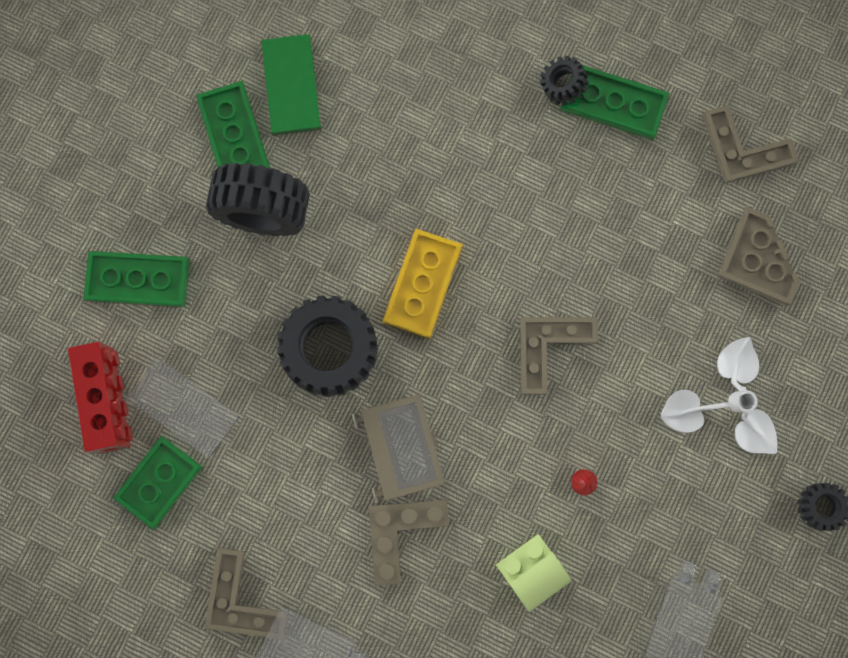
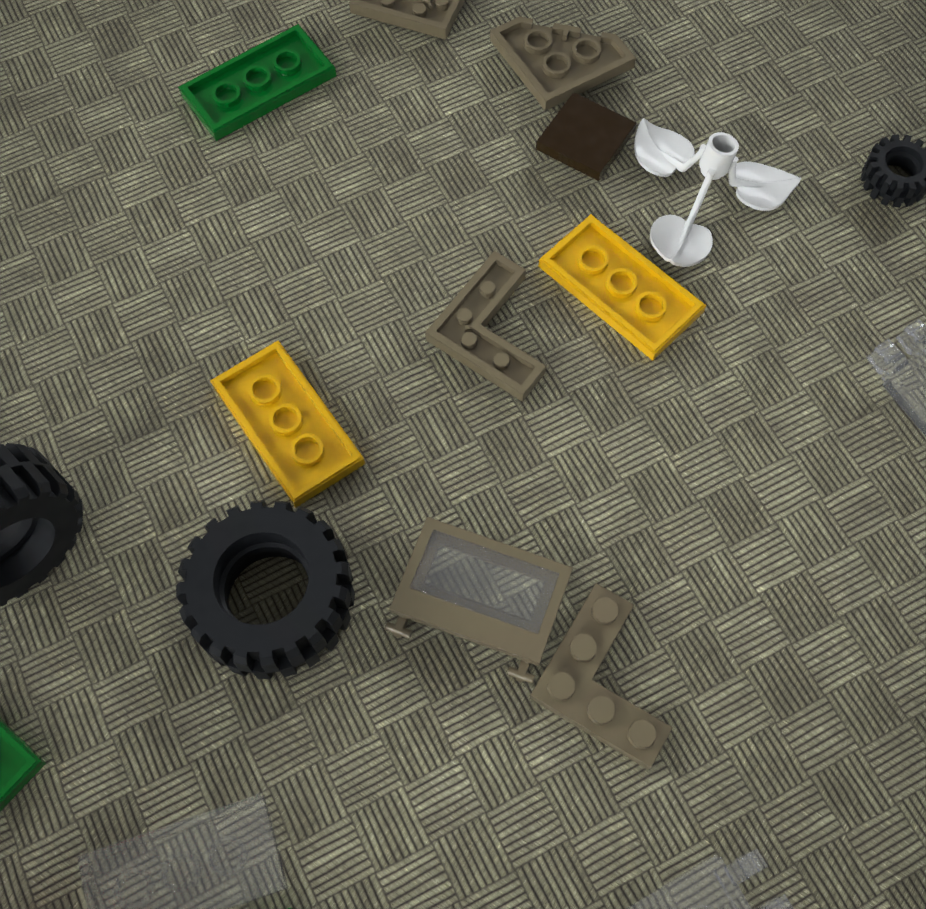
camera: 55 degrees left, 15 degrees down
(533, 573) = (772, 538): yellowish green brick -> none
(557, 70) = (172, 96): black tyre -> none
(584, 482) = (691, 401): red plate -> none
(630, 398) = (622, 286): none -> yellow tile
(713, 313) = (586, 136): none -> dark brown tile

